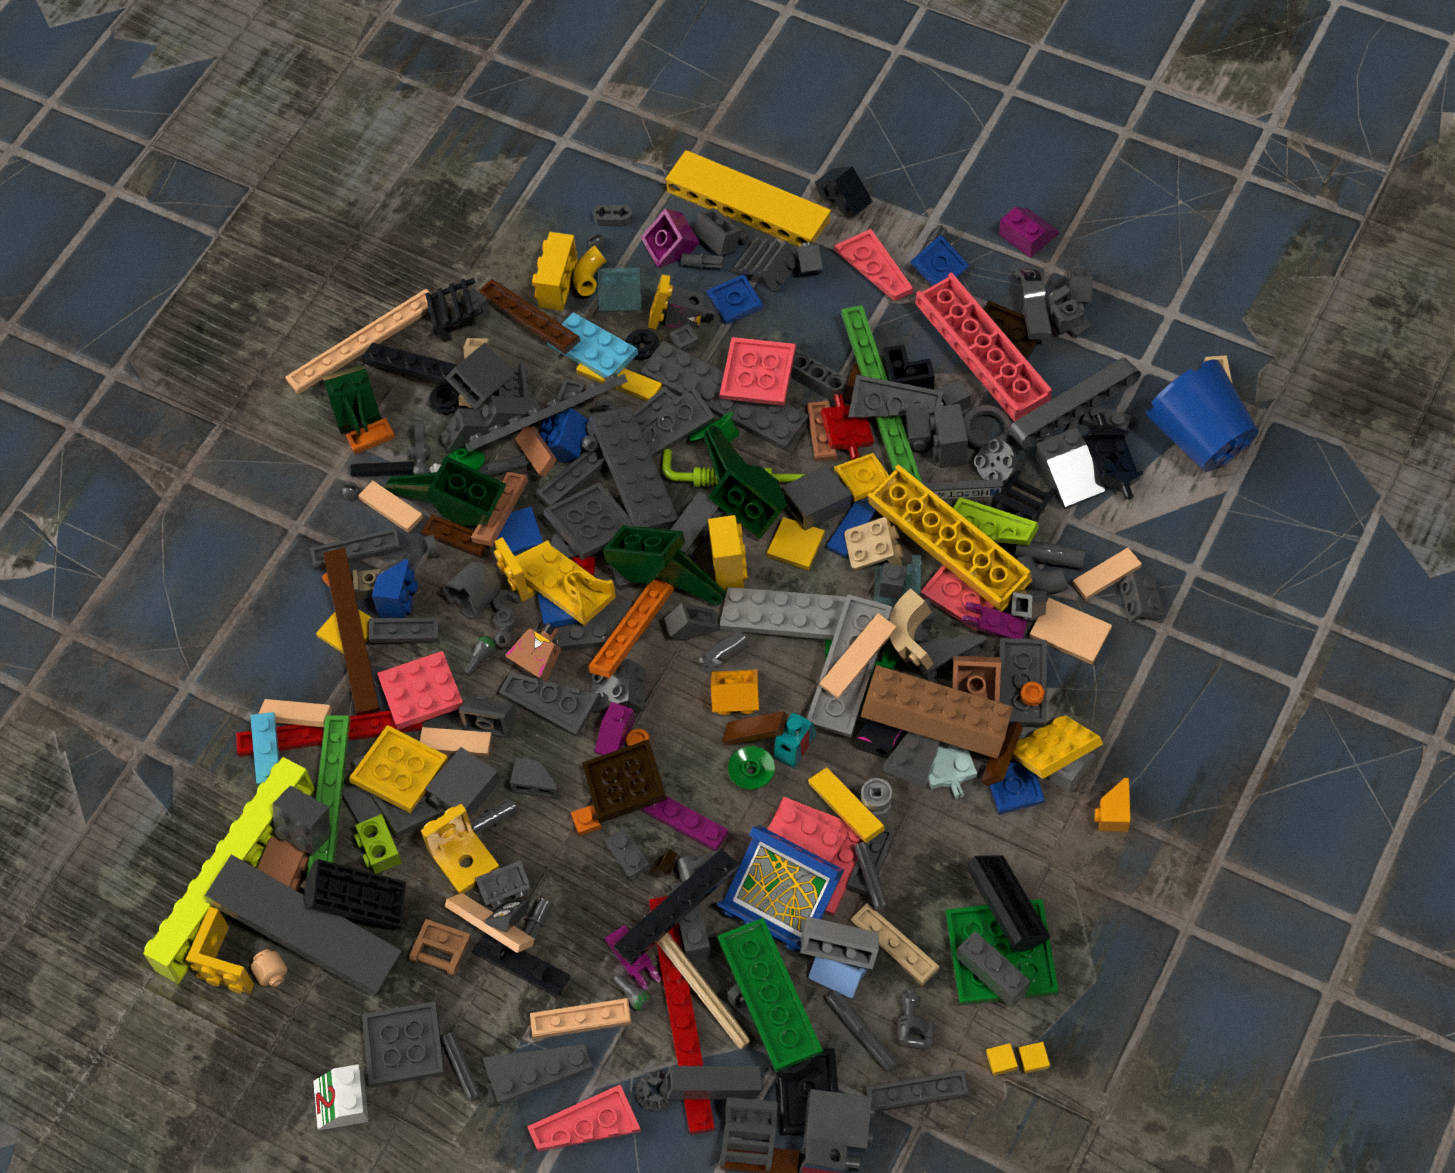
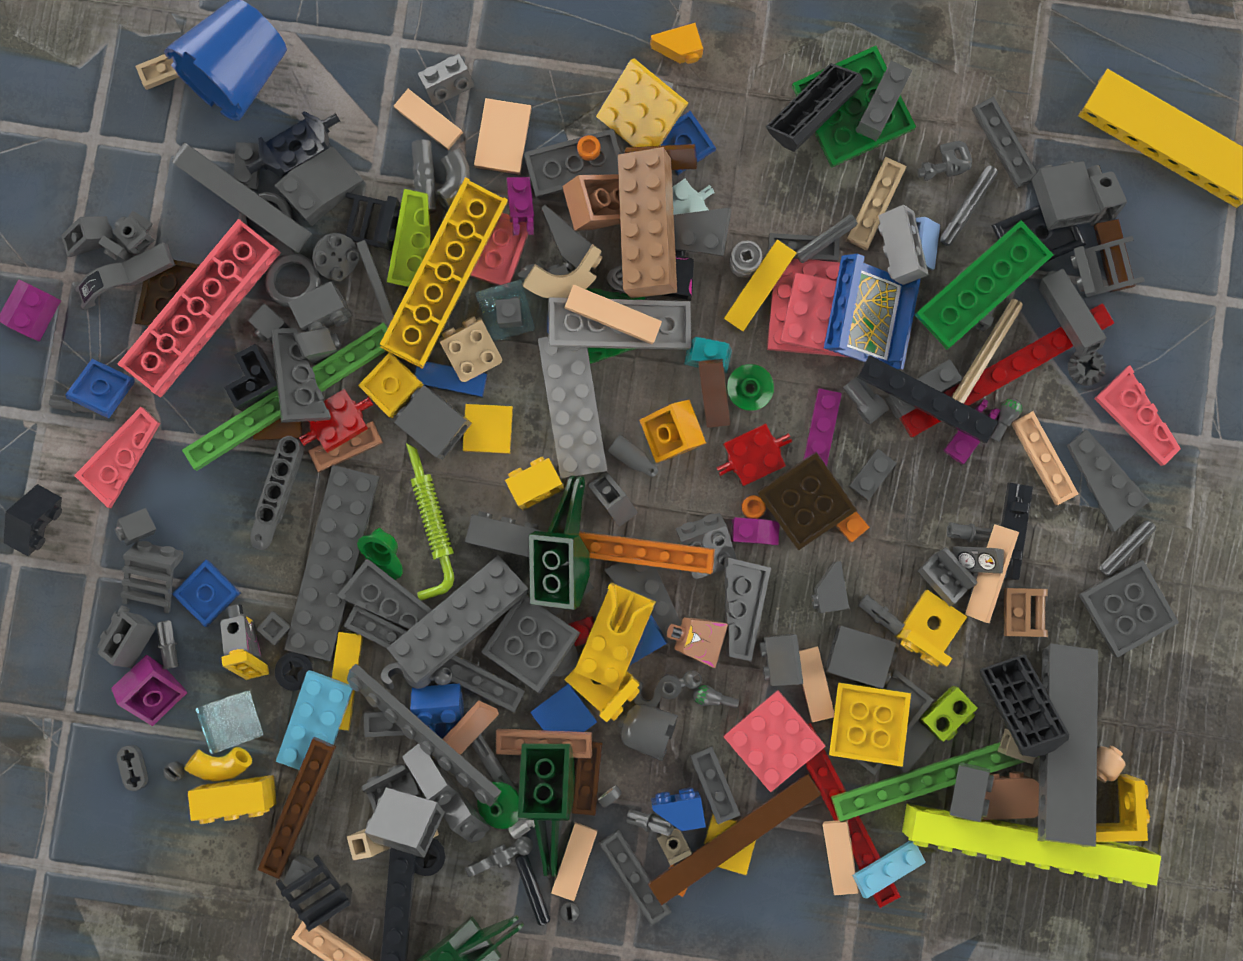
camera: 115 degrees left, 25 degrees up
(341, 1098) = (1198, 643): white slope -> none
(378, 433) = (489, 913): orange tile -> none
(664, 863) = (875, 434): dark brown plate -> none
(686, 755) = (754, 454): none -> red plate
(743, 488) = (457, 494): dark green slope -> none
(749, 197) = (70, 623): yellow tile -> none
(758, 371) = (301, 529): coral plate -> none
(1001, 1059) = (950, 79): yellow tile -> none
(1029, 603) = (493, 176): dark grey brick -> none
(1034, 1057) = (939, 52): yellow tile -> none

